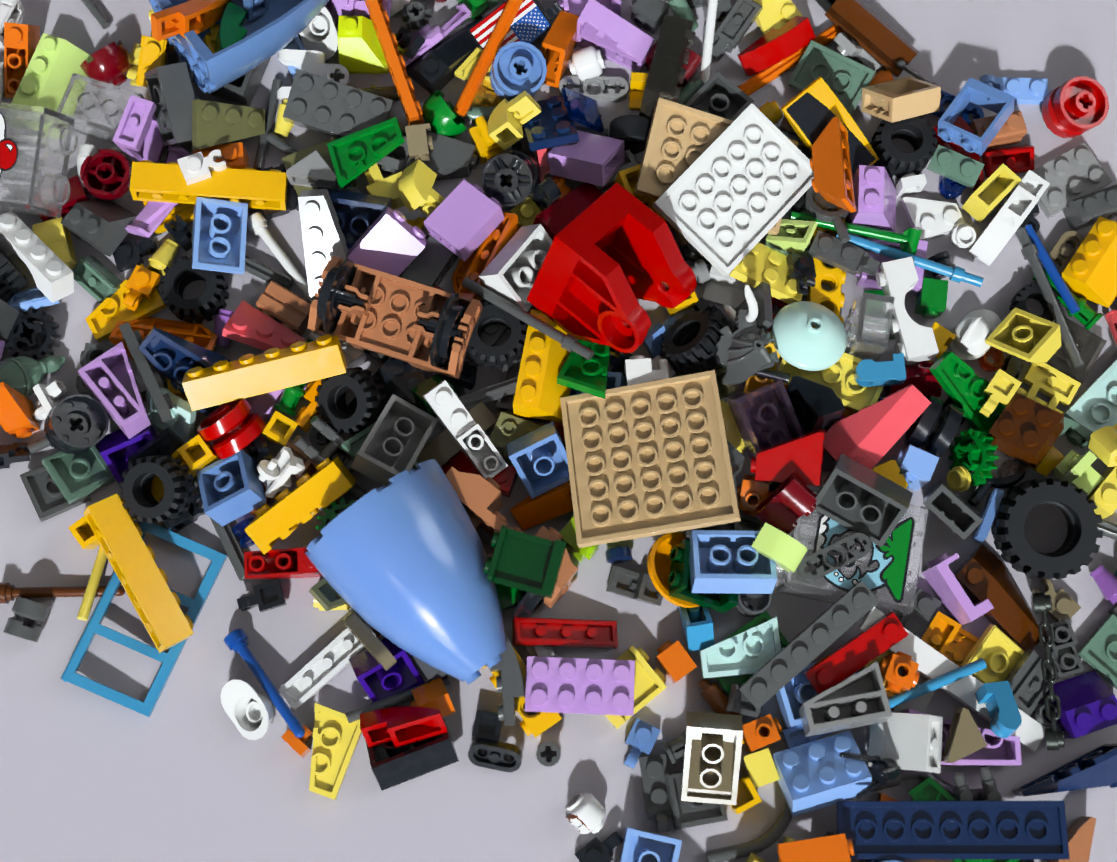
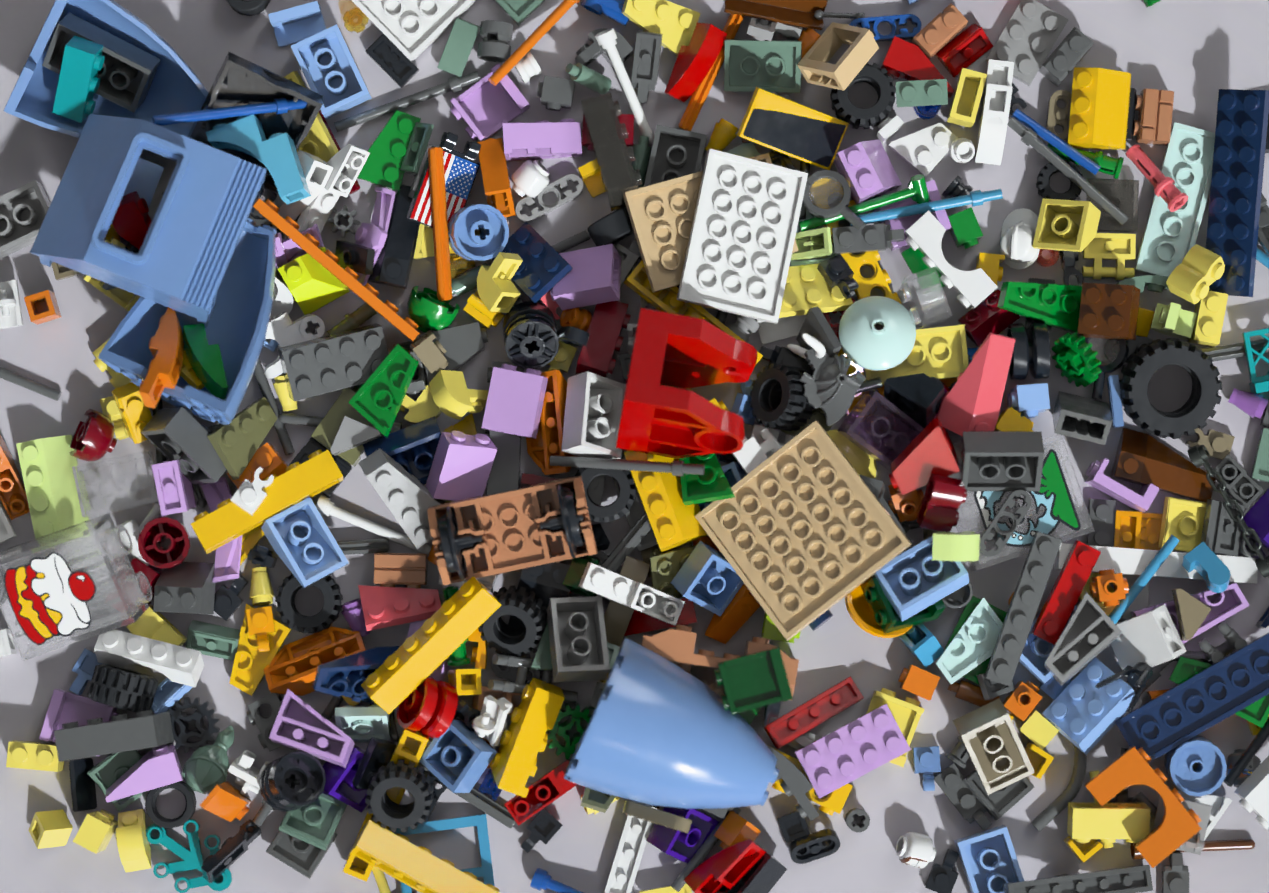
camera: 25 degrees left, 10 degrees up
(151, 380) = (337, 708): dark grey plate -> none
(582, 109) = (554, 229): clear blue piece -> none
(633, 586) = (846, 638): dark grey slope -> none
(833, 166) = (817, 169): orange wedge -> none
(884, 373) = (951, 339): dark azure leg -> none
(959, 479) = (1074, 386): light yellow plate -> none
(984, 96) = (914, 13): medium blue window -> none
(1001, 390) = (1068, 287): light yellow plate -> none

